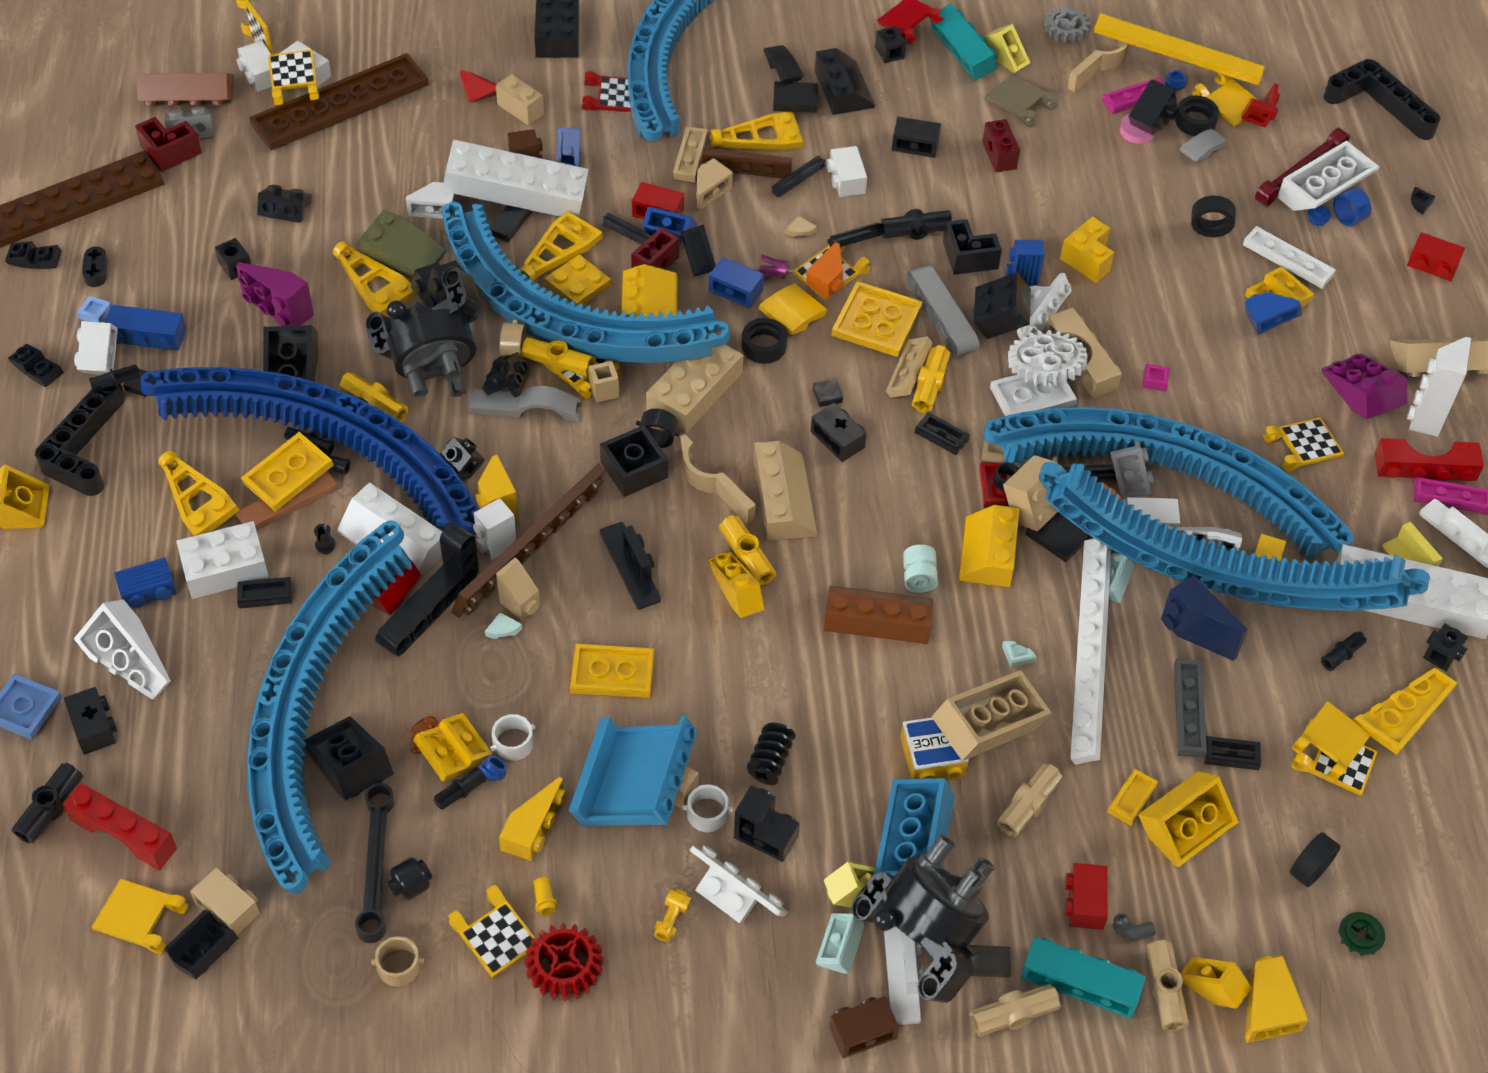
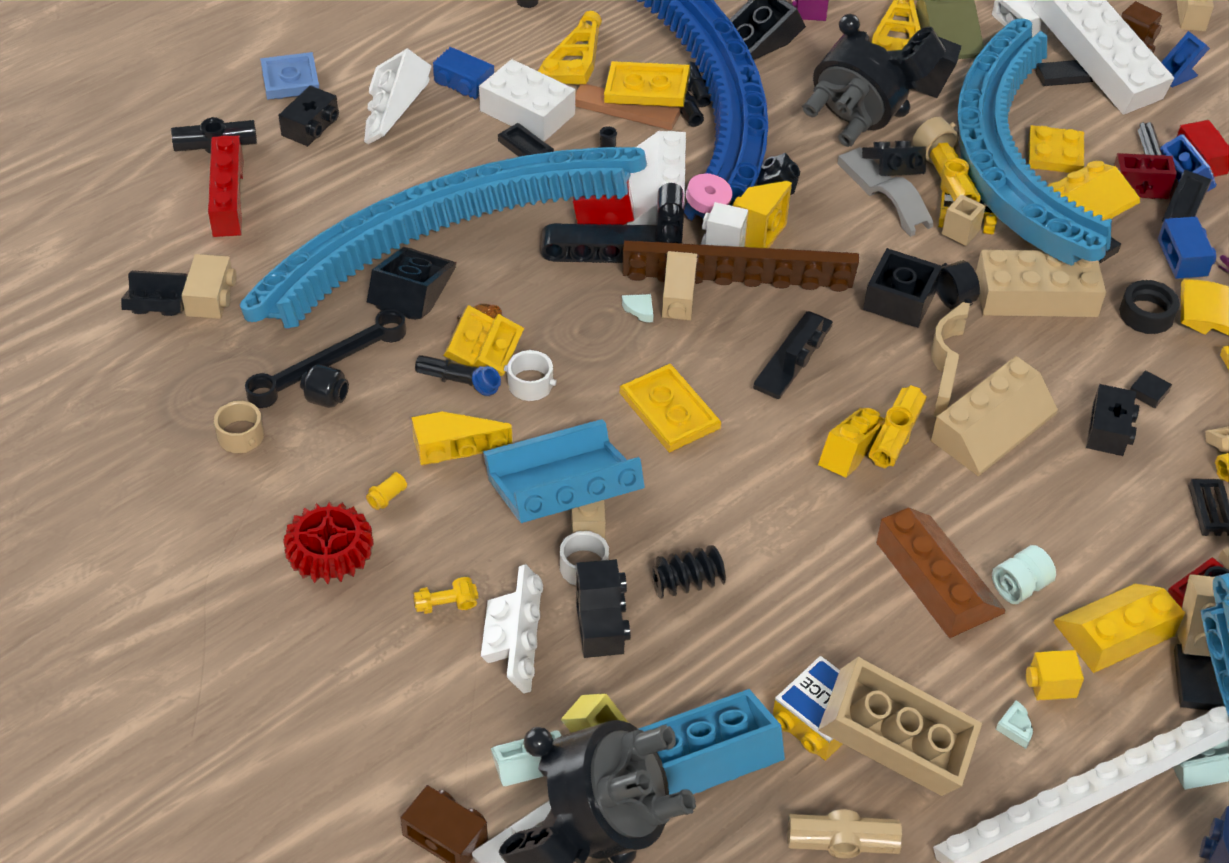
camera: 55 degrees right, 5 degrees down
(133, 913) = (160, 242): yellow flag -> none
(373, 394) = (780, 95): yellow piece -> none
(453, 501) = (706, 190): none -> bright pink piece
(496, 937) = (320, 478): flag -> none
(573, 229) = (1105, 113): yellow plate -> none
(1003, 607) = (1055, 675): none -> yellow brick

